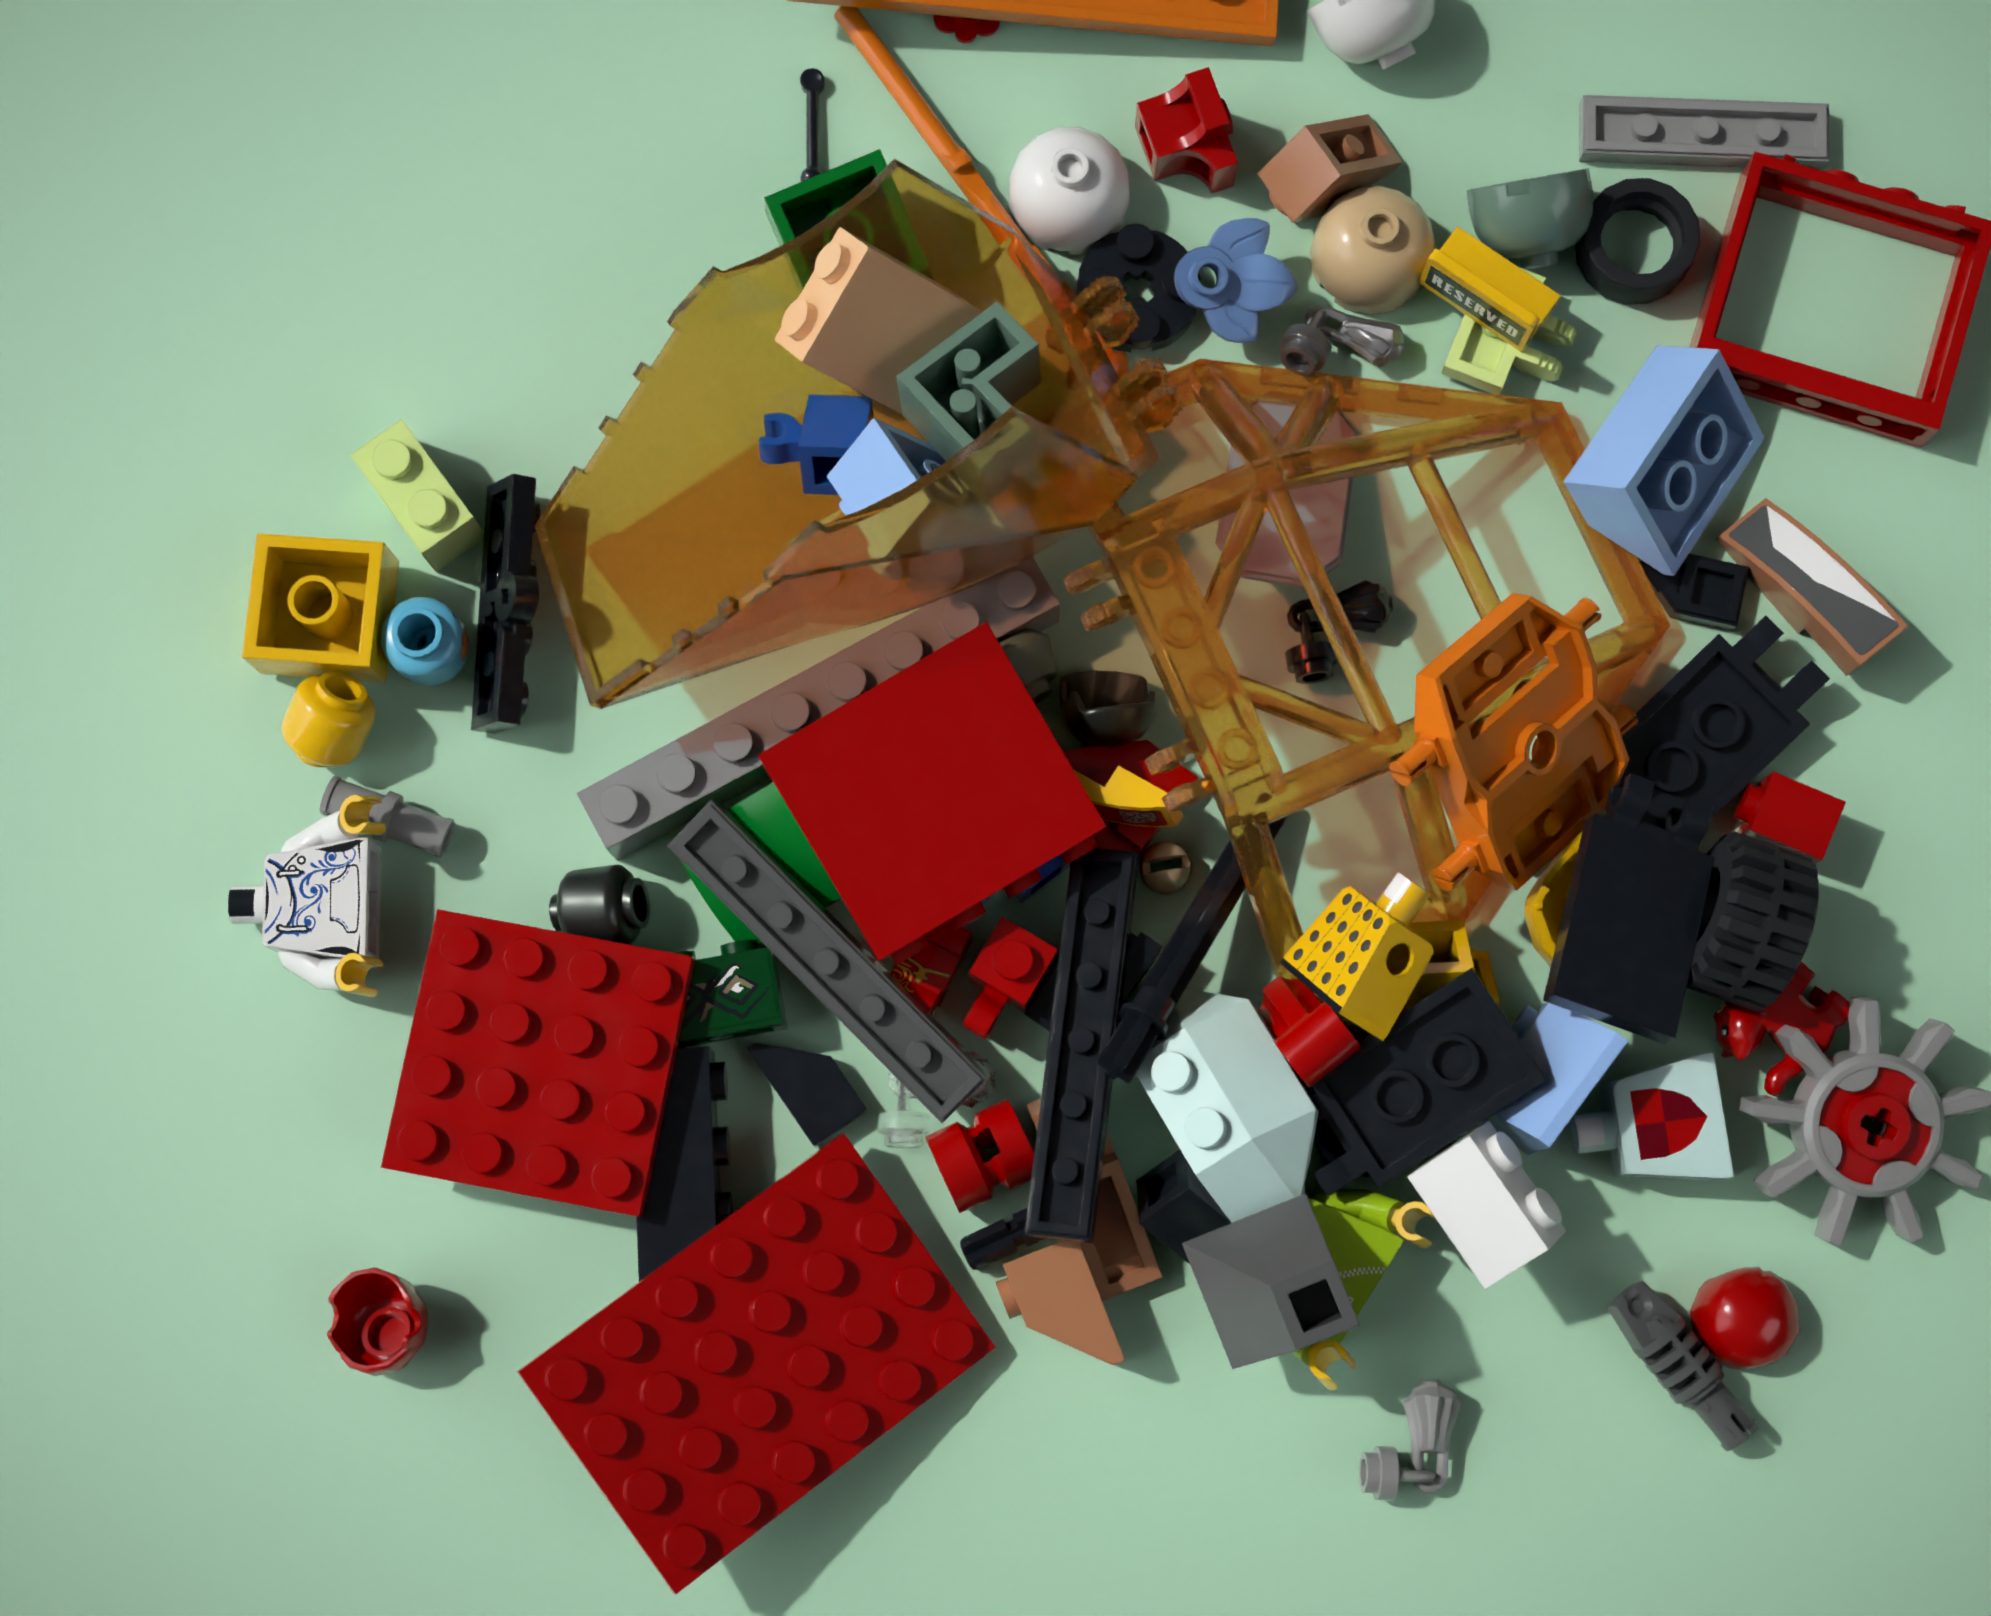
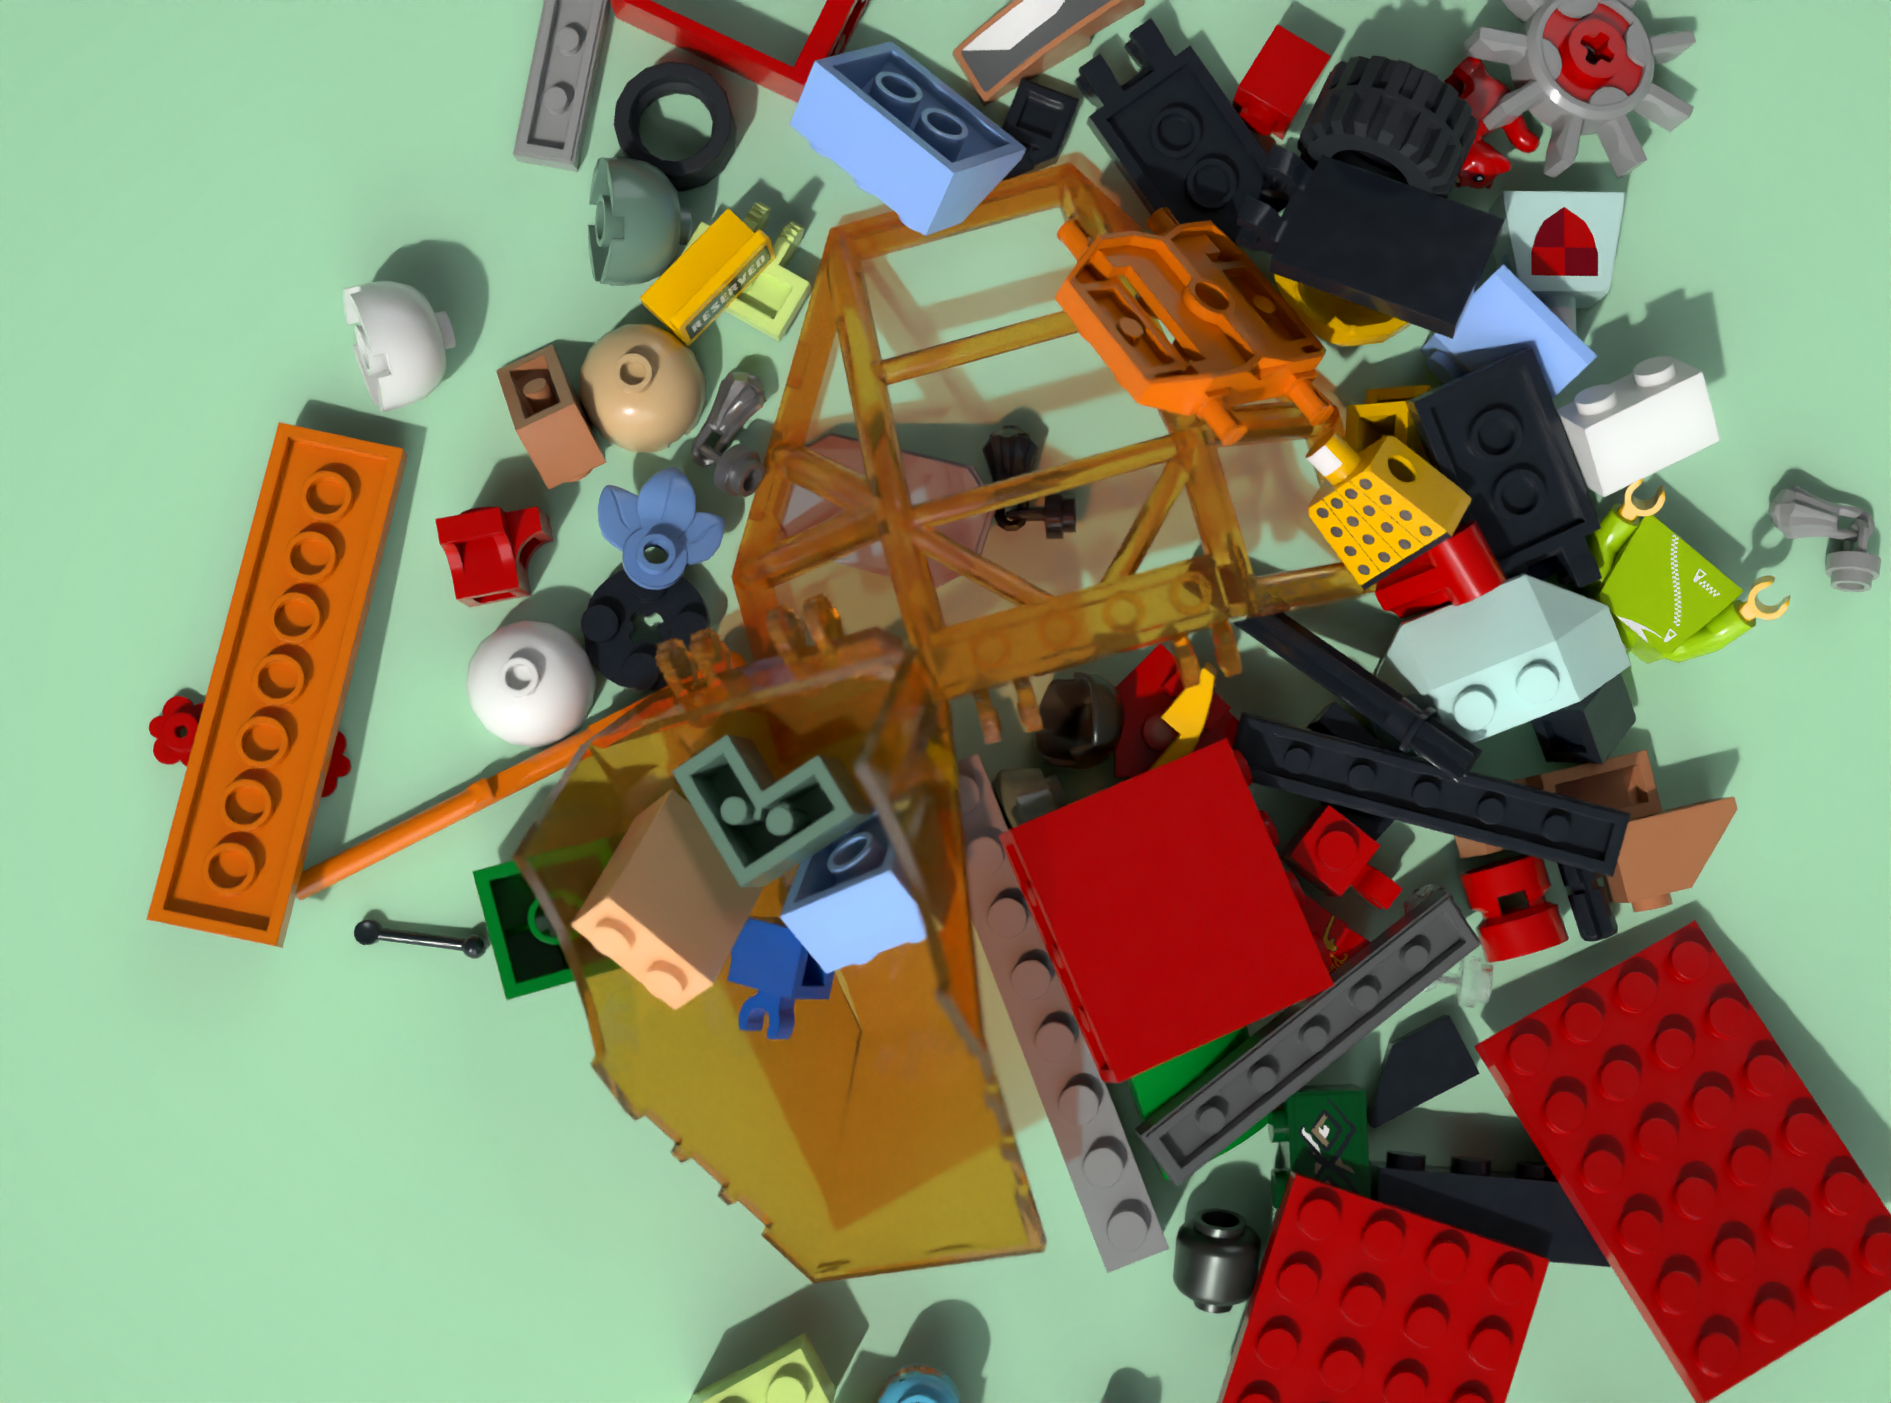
camera: 85 degrees left, 5 degrees up
(506, 604) = (888, 1321): black hinge -> none
(1167, 880) = (1230, 689): tan hinge -> none
(1270, 1283) = (1691, 641): dark grey slope -> none
(1680, 1362) = (1780, 274): dark grey hinge -> none
(1746, 1318) = (1743, 208): red hair -> none

